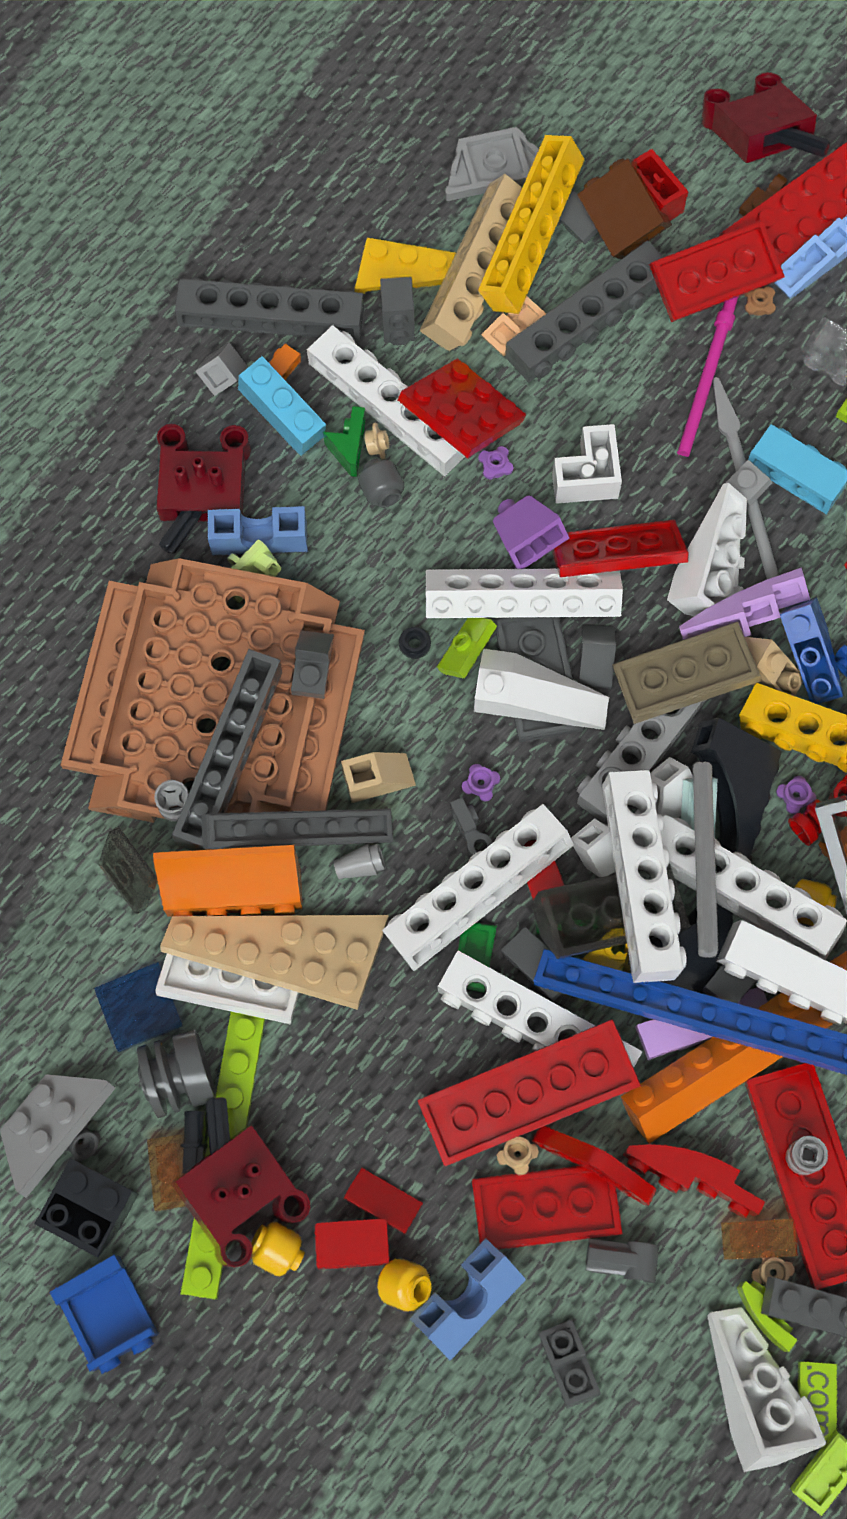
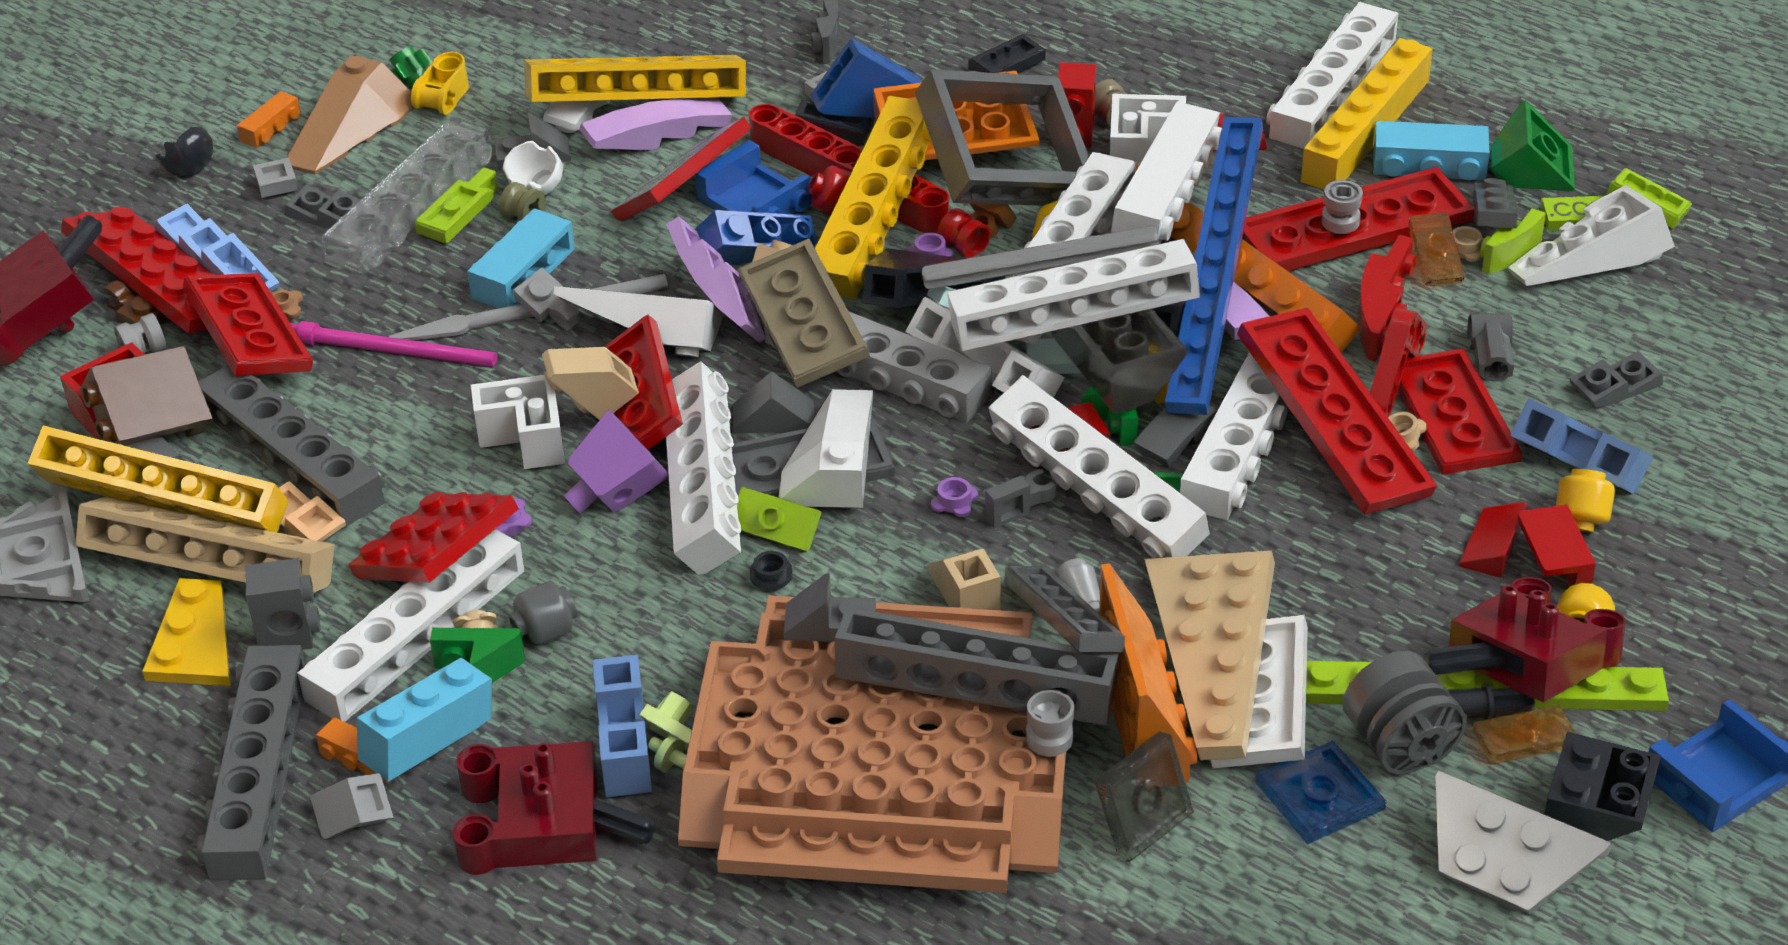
camera: 95 degrees left, 30 degrees down
(614, 508) = (591, 378): none -> tan slope
(721, 203) = (144, 334): none -> light grey wheel

